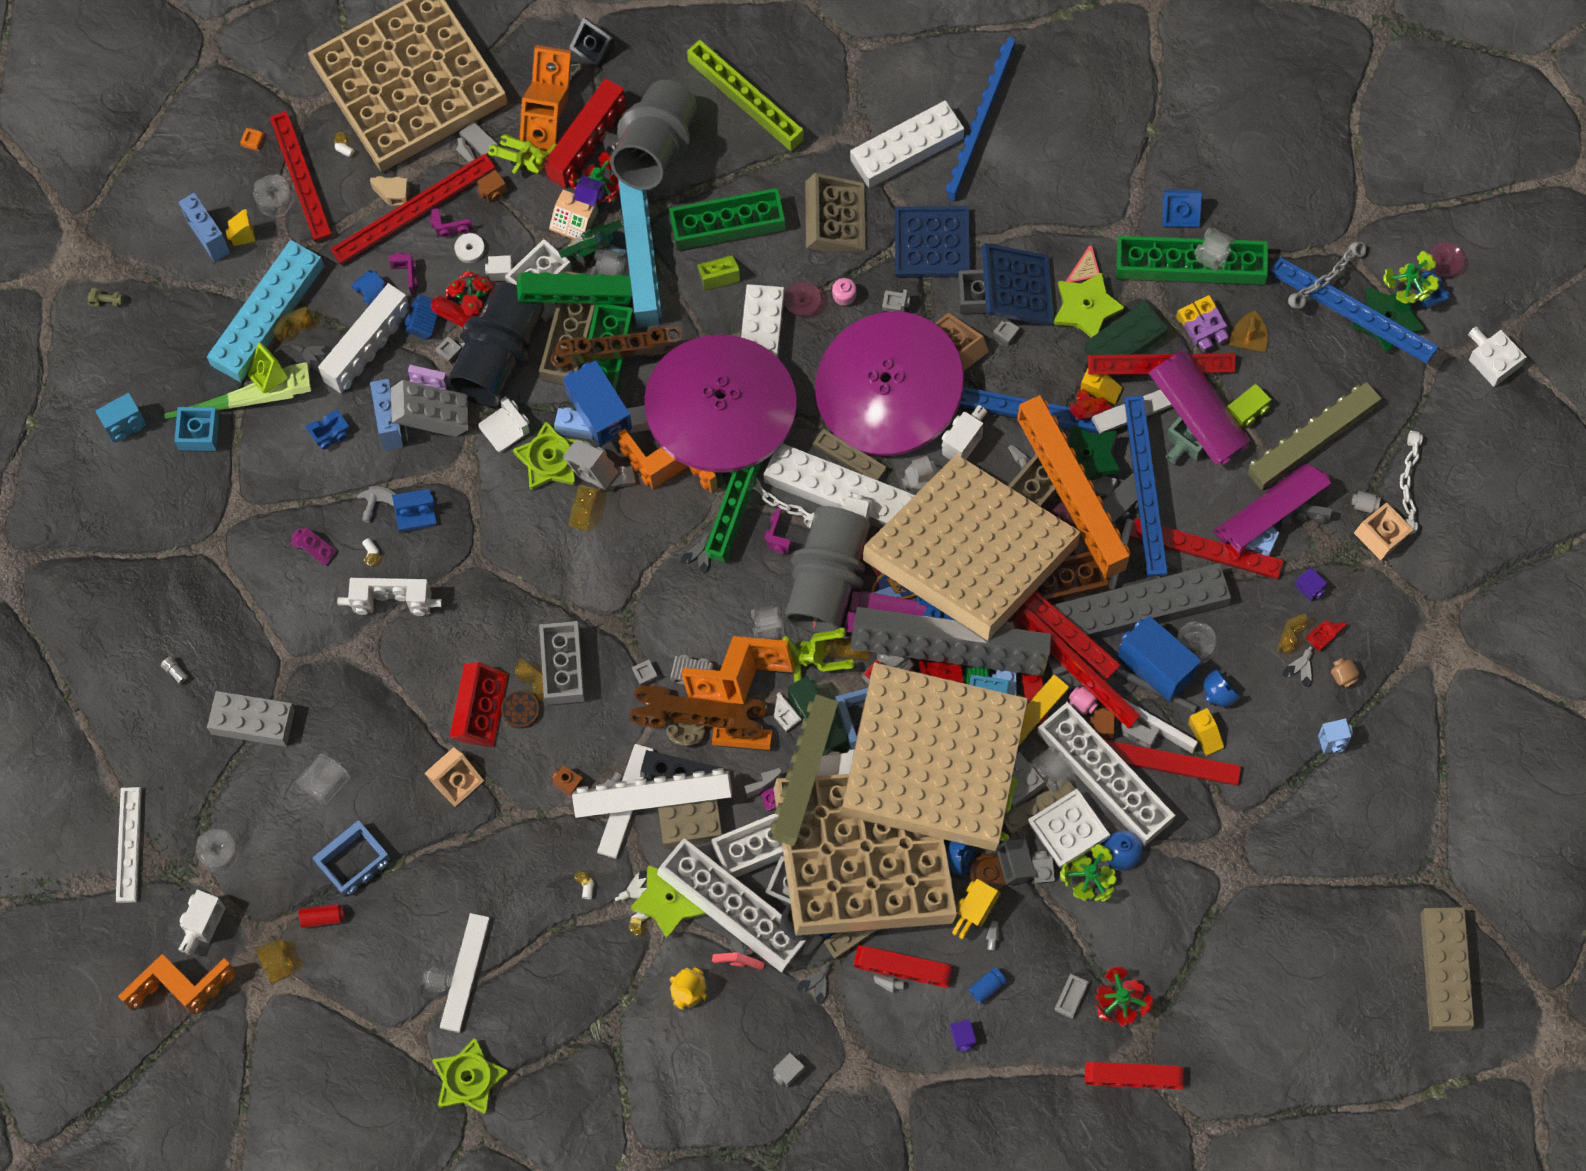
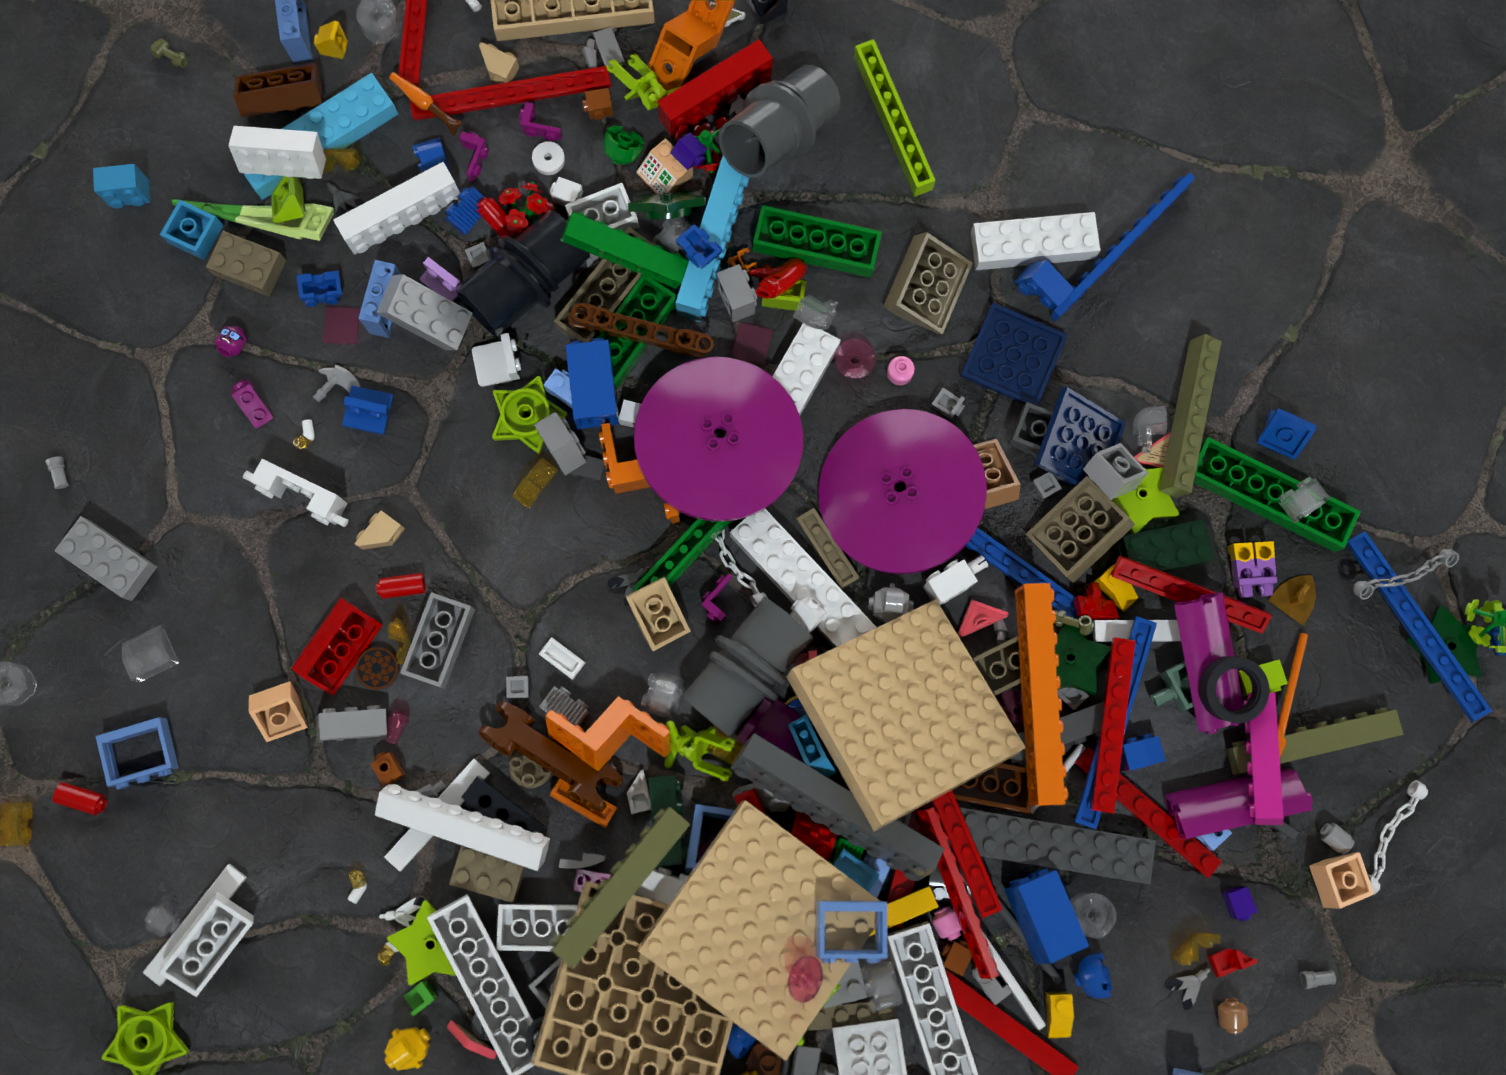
camera: 15 degrees right, 10 degrees up
(218, 286) = (278, 90): none -> reddish brown brick
(248, 331) = (277, 152): none -> white brick
(255, 437) = (246, 263): none -> dark tan brick
(272, 504) = (230, 341): none -> magenta head
(346, 245) = (425, 102): none -> orange piece
(358, 454) = (341, 325): none -> clear pink piece
(472, 601) = (380, 533): none -> tan slope
(484, 976) = (206, 944): none -> white brick
(509, 635) = (401, 585): none -> red brick
(519, 758) = (351, 723): none -> light grey wedge
(528, 211) = (622, 146): none -> green cylinder
(558, 746) = (396, 725): none -> clear pink cone
(633, 260) = (698, 247): none -> blue cylinder
(670, 636) = (562, 658): none -> white tile
(674, 266) = (738, 257): none -> orange piece
(679, 287) = (736, 293): none -> light grey brick
(680, 945) = (420, 997): none -> bright green panel
(710, 261) = (778, 279): none -> red piece
(710, 321) = (752, 344): none -> clear pink piece
(734, 561) = (657, 614): none -> tan slope
(753, 274) = (815, 313): none -> clear brick
(902, 603) = (811, 746): none -> dark azure brick
(931, 172) = (1045, 282): none -> blue brick
(984, 771) = (805, 978): none -> clear pink dish
(999, 455) = (980, 616): none -> coral tile
(1015, 697) = (852, 956): none -> medium blue window
(1049, 351) = (1080, 529): none -> dark tan slope
(1055, 292) = (1115, 471): none -> light grey brick
(1066, 246) = (1147, 423): none -> clear brick
(1084, 422) = (1084, 623): none -> olive bar
(1097, 226) = (1190, 416): none -> olive brick
(1143, 487) = (1113, 725): none -> red plate
(1176, 504) = (1141, 752): none -> blue brick
(1241, 401) = (1259, 694): none -> black tyre
(1276, 461) = (1265, 766): none -> dark pink brick
(1282, 446) = (1290, 690): none -> orange piece
(1396, 618) = (1312, 979): none -> light grey pin

